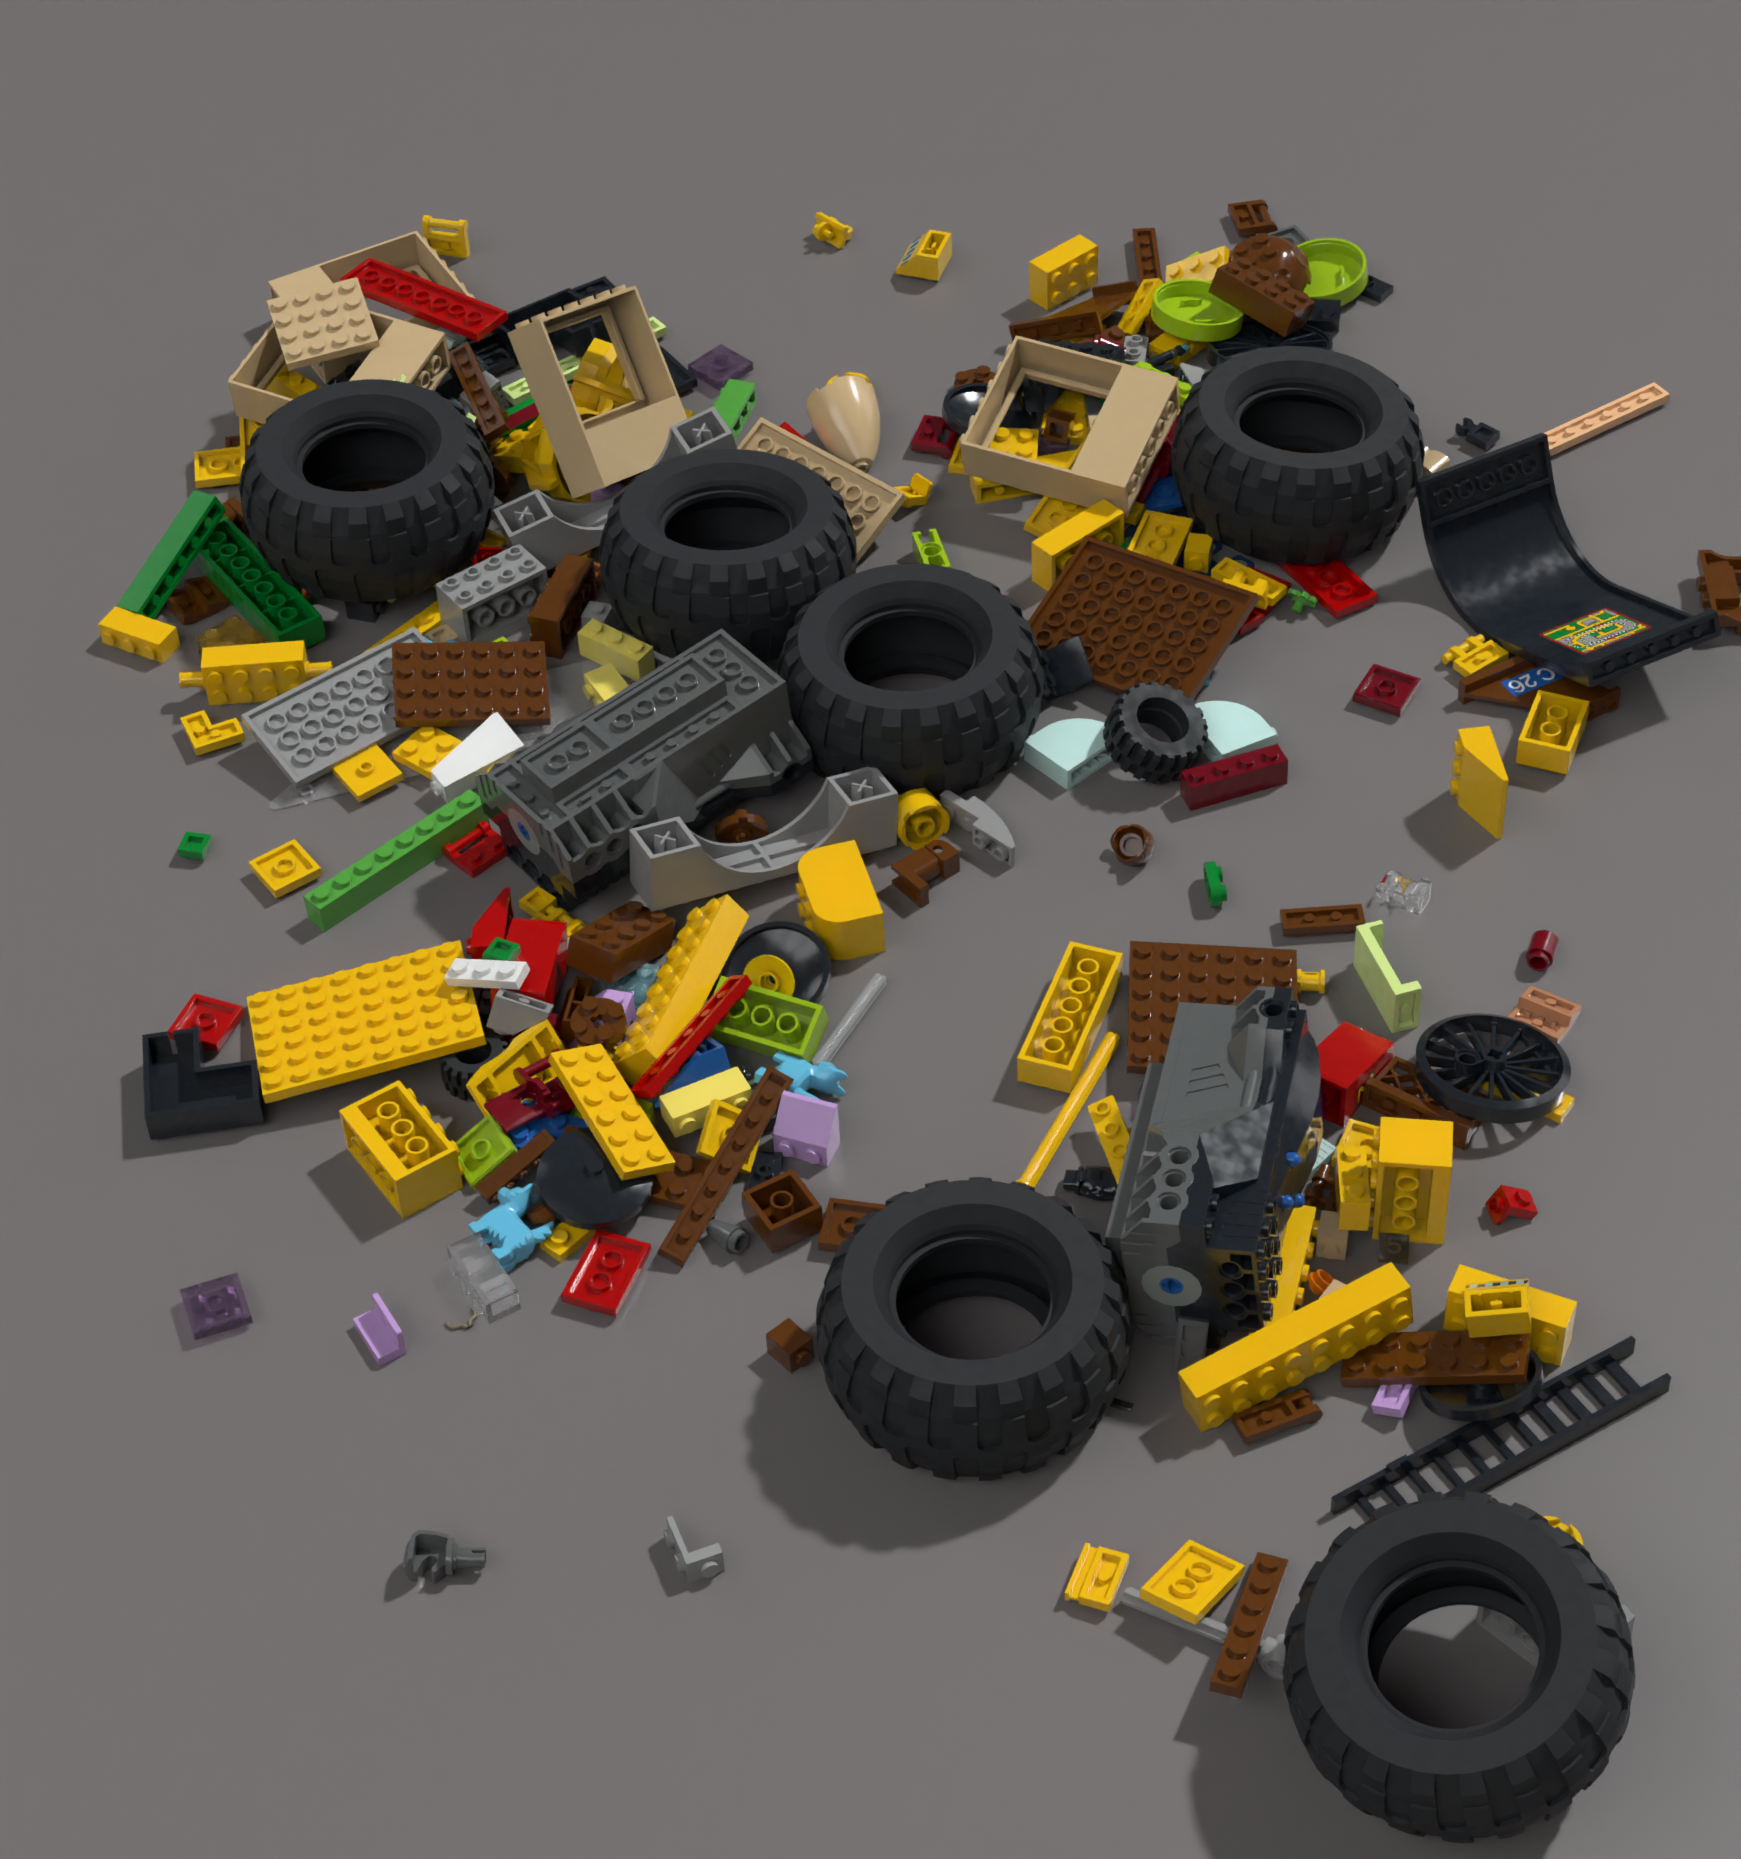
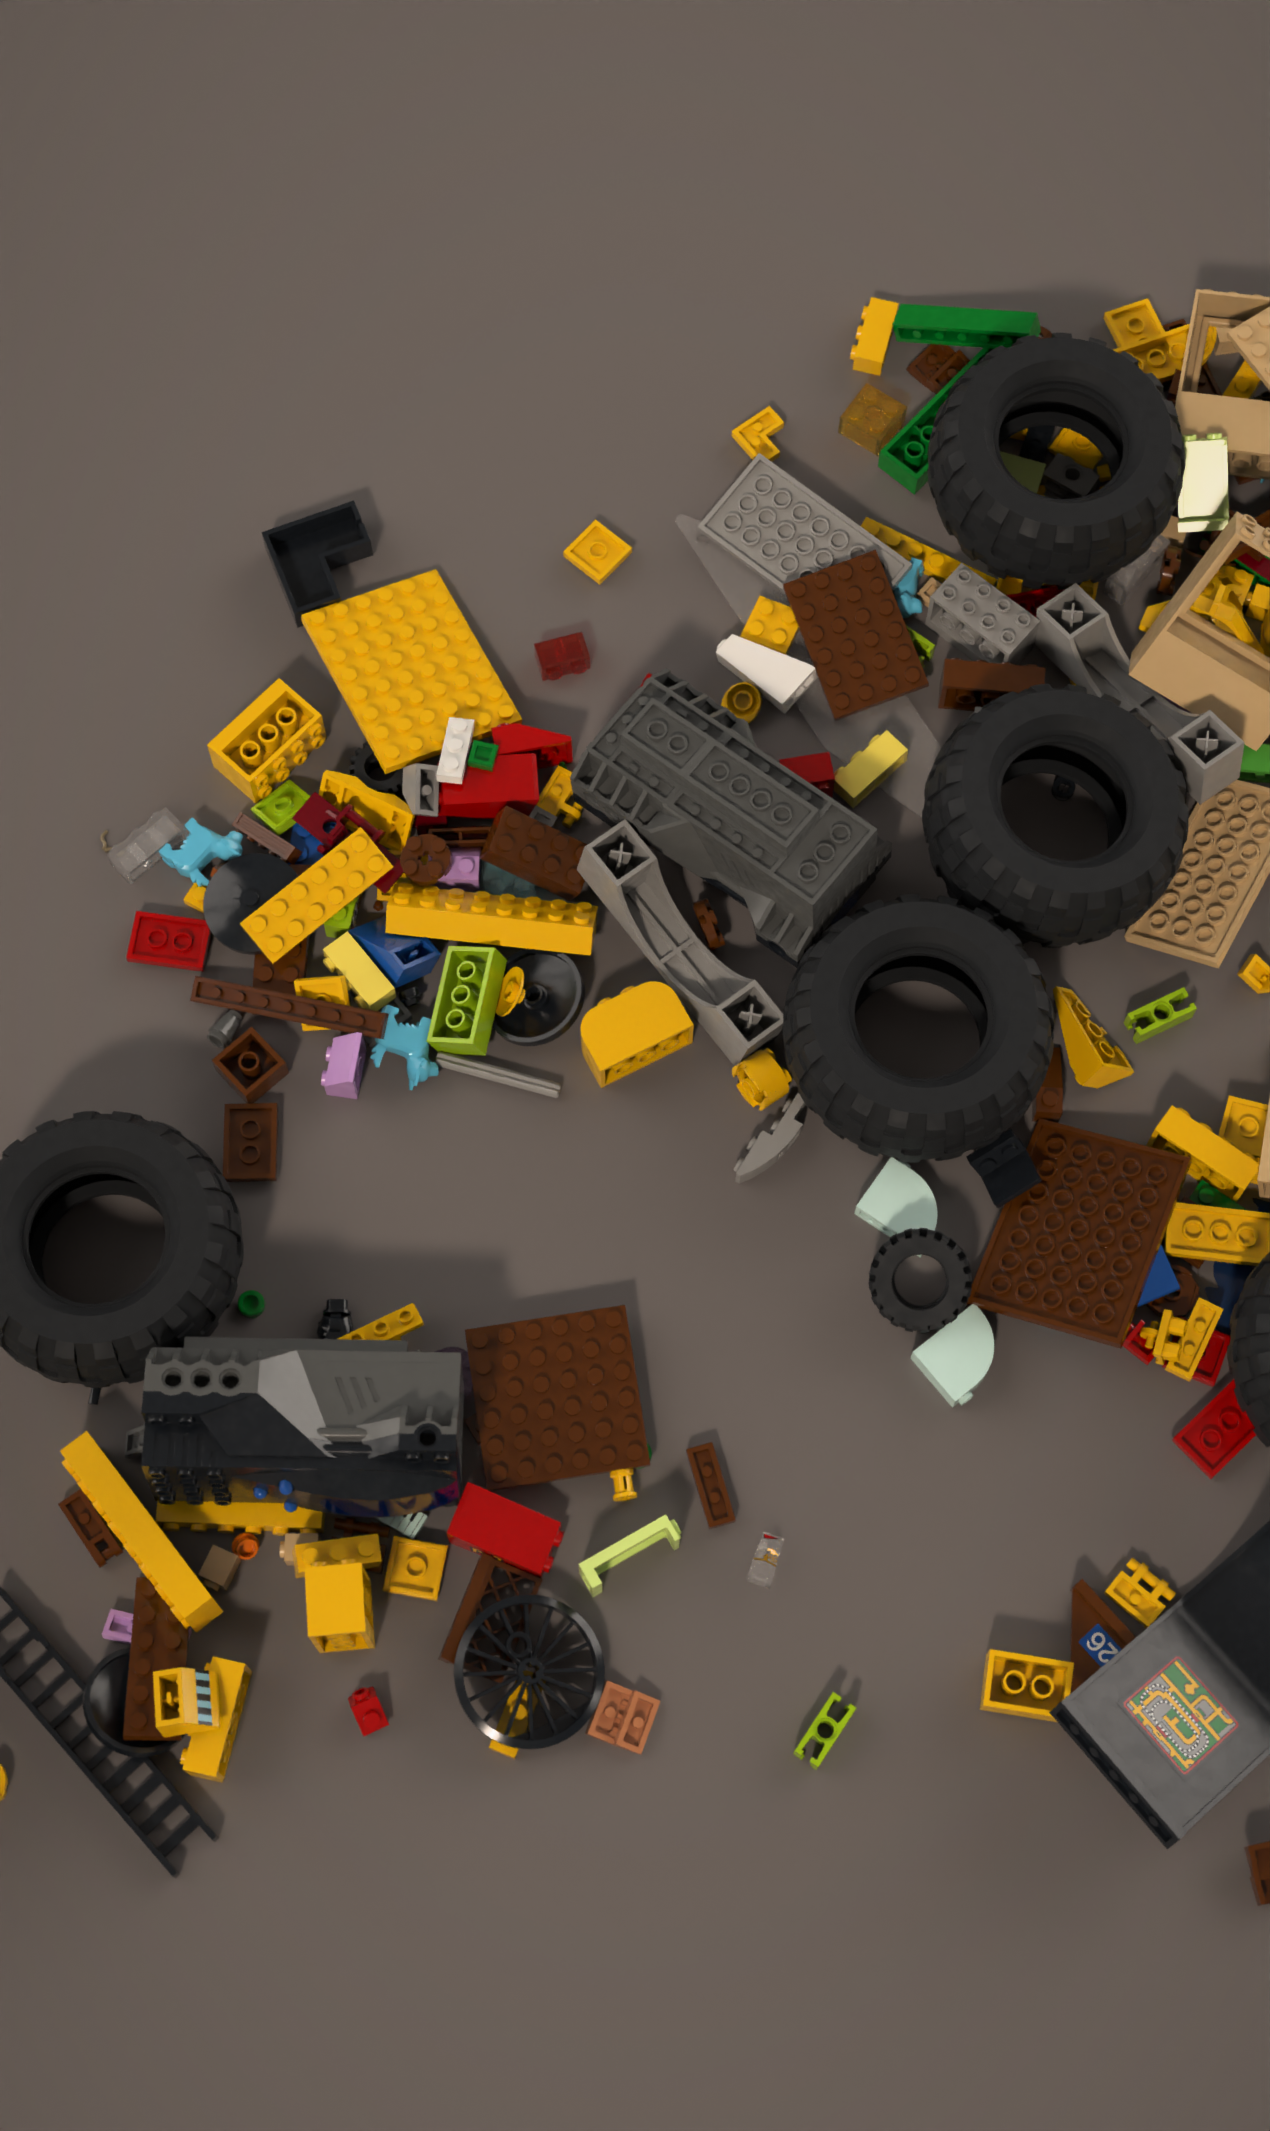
camera: 75 degrees right, 25 degrees up
(195, 845) = (611, 470): green plate -> none
(213, 1018) = (400, 546): red plate -> none
(216, 1306) = (90, 652): clear purple plate -> none
(252, 671) = (833, 449): yellow brick -> none
(367, 773) = (732, 583): yellow plate -> none
(380, 1332) = (82, 783): lavender panel -> none
(393, 861) = (616, 635): bright green brick -> none
(395, 909) = (562, 656): none -> clear red brick
(609, 645) = (938, 733): light yellow brick -> none
(690, 1037) = (411, 939): red plate -> none
(765, 1166) = (301, 1044): black plate -> none
(790, 1345) = (109, 1100): reddish brown brick -> none
(924, 866) = (704, 1097): reddish brown piece -> none
(1070, 1017) = (527, 1268): yellow brick -> none
(1070, 1110) = (418, 1289): yellow axle -> none
(1132, 844) = (772, 1288): reddish brown hair -> none
(1198, 552) = (1230, 1279): yellow brick -> none
(1215, 891) = (747, 1370): green plate -> none
(1233, 777) = (892, 1369): dark red brick -> none
(1301, 600) = (1186, 1398): bright green plant -> none
(1386, 689) = (1065, 1506): dark red plate -> none
(1393, 1248) = (297, 1607): clear smoke tile -> none
(1479, 778) = (927, 1611): yellow slope -> none
(1542, 950) = (707, 1706): dark red brick -> none
(1575, 873) = (812, 1733): none -> lime piece

